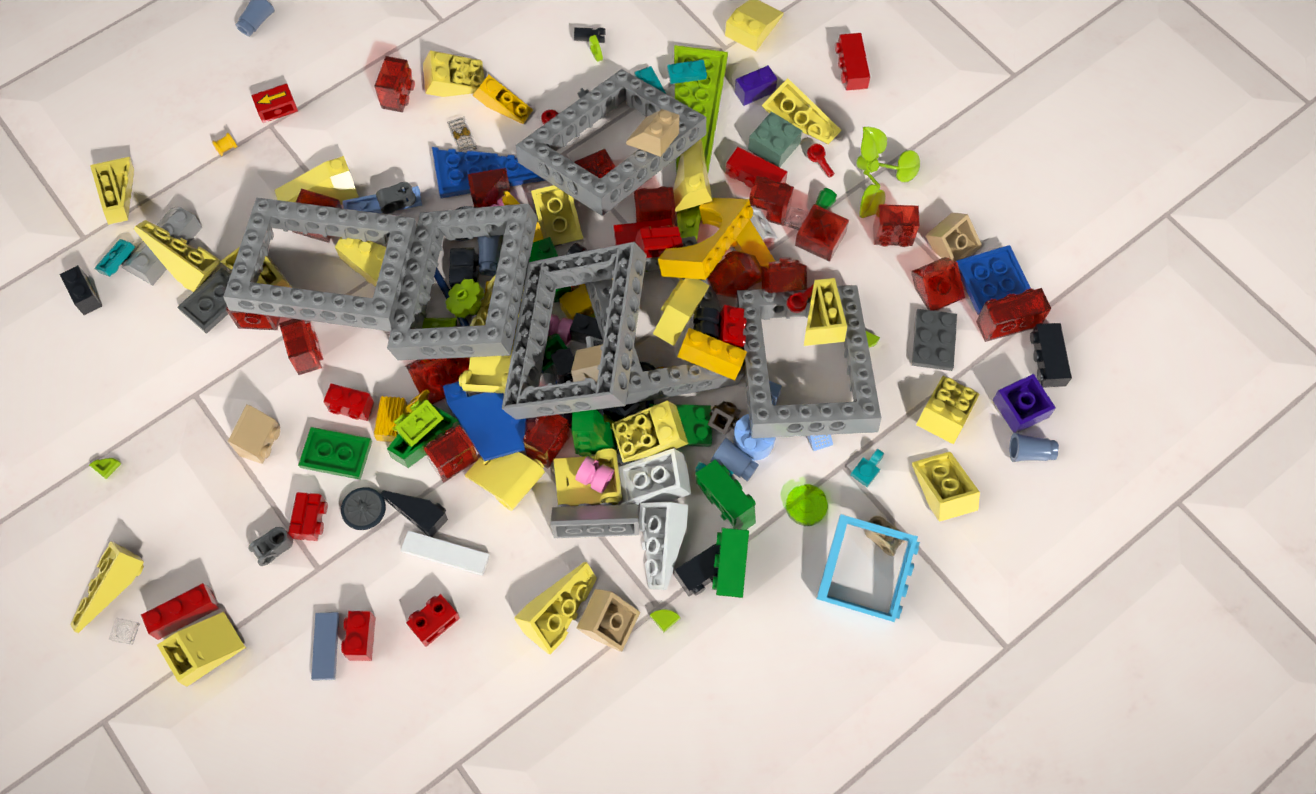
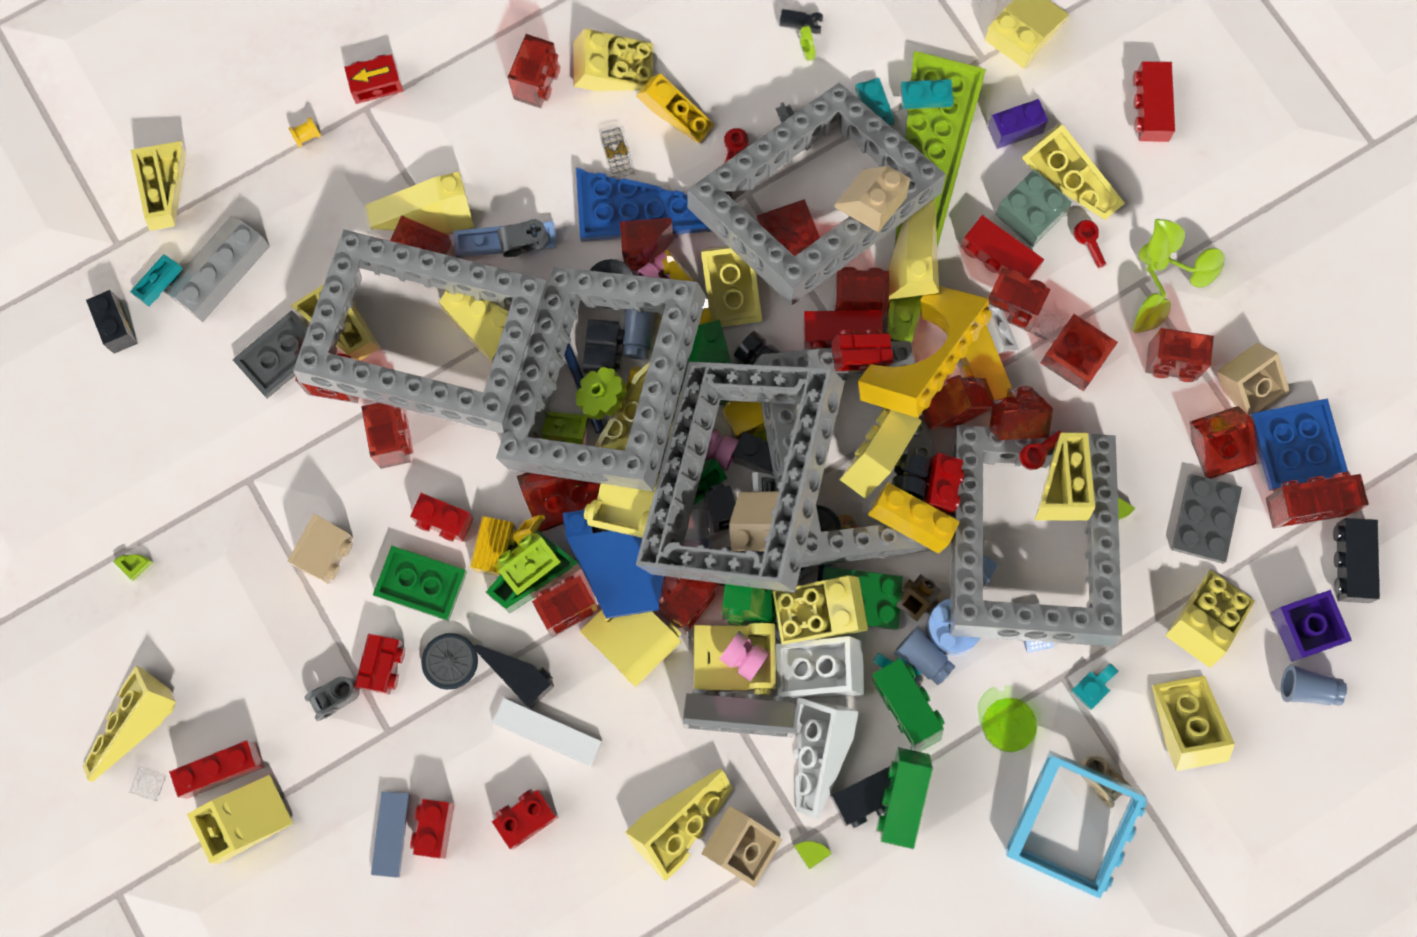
camera: 10 degrees right, 10 degrees up
(184, 262) = (244, 298): light yellow wedge -> none
(826, 198) = (1088, 303): green cone -> none

